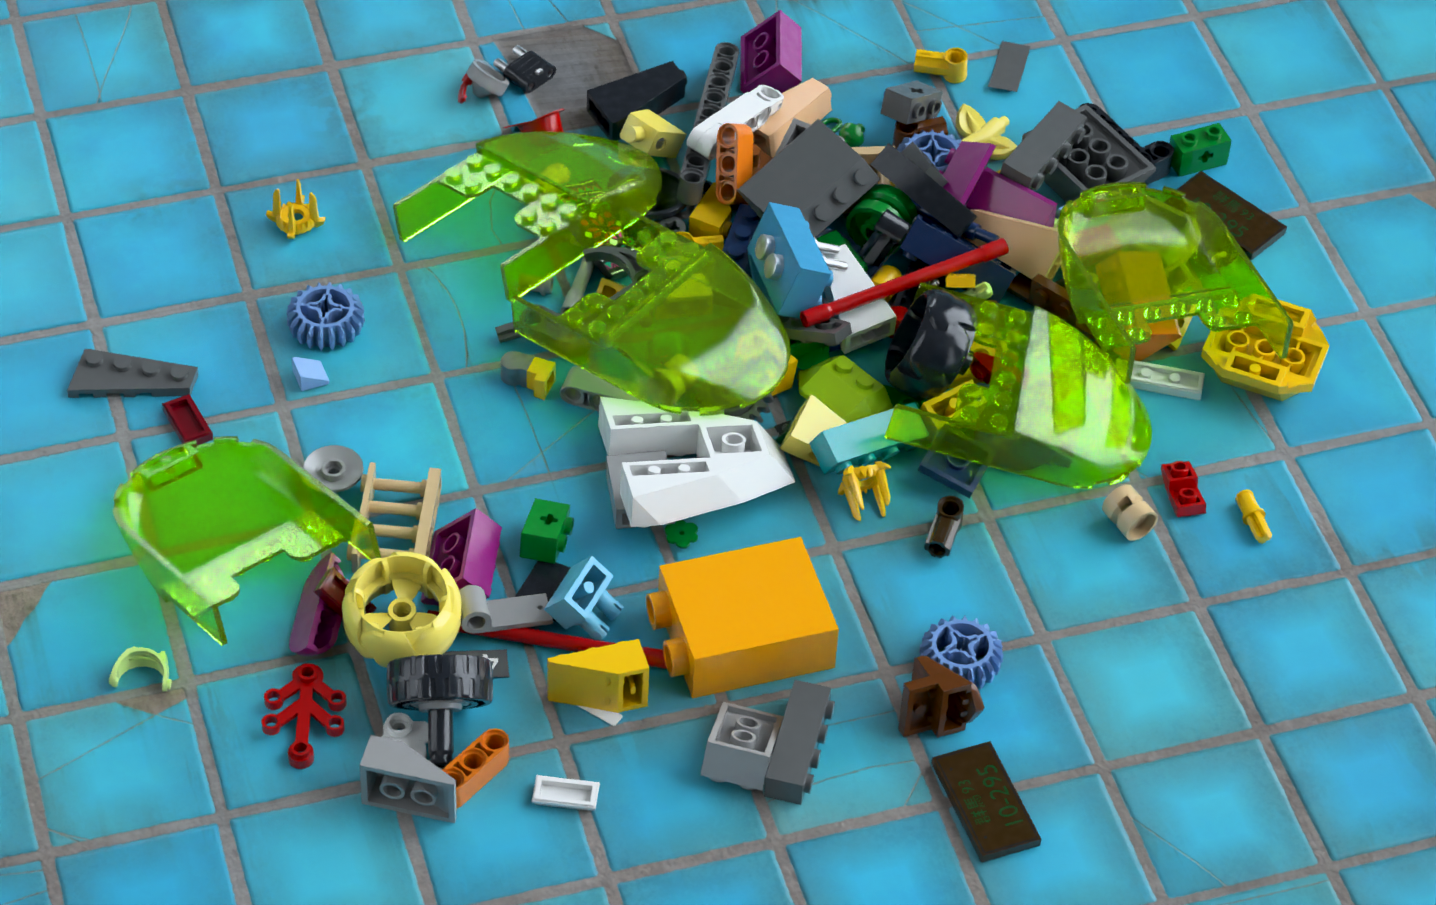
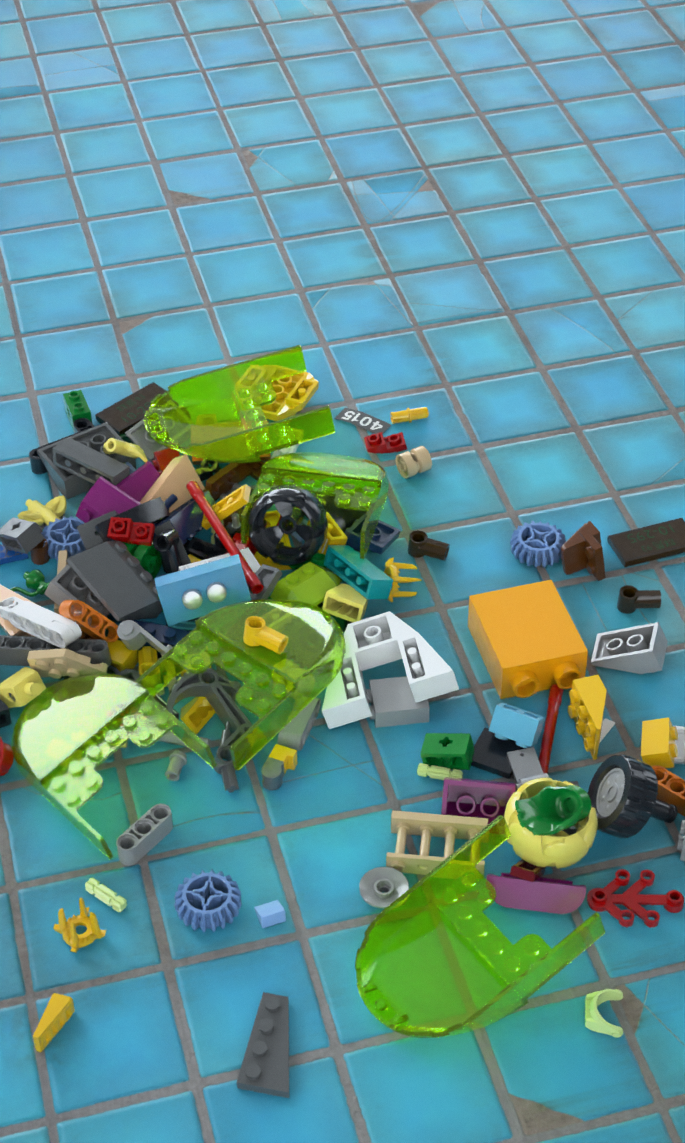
camera: 85 degrees left, 5 degrees down
(179, 201) = (53, 1019): none -> yellow slope
(187, 420) = (323, 999): dark red tile -> none
(344, 235) = (106, 895): none -> yellowish green axle
(386, 581) = (553, 809): none -> green hair
(412, 733) = (652, 839): white plate -> none
(425, 259) = (144, 834): none -> light grey beam
(512, 544) = (437, 772): none -> yellowish green axle
(556, 753) = (658, 742): none -> yellow brick
(666, 150) = (62, 662): none -> tan wing
(672, 298) = (258, 634): none -> yellow piece
(716, 221) = (135, 637): none -> light grey door
(798, 742) = (605, 617): dark grey brick -> none
(848, 764) = (632, 598): none -> dark brown piece
(890, 182) = (131, 532): none -> red slope
(1074, 174) = (124, 448): none -> light yellow plant
(1238, 467) = (363, 420): none -> dark grey sticker

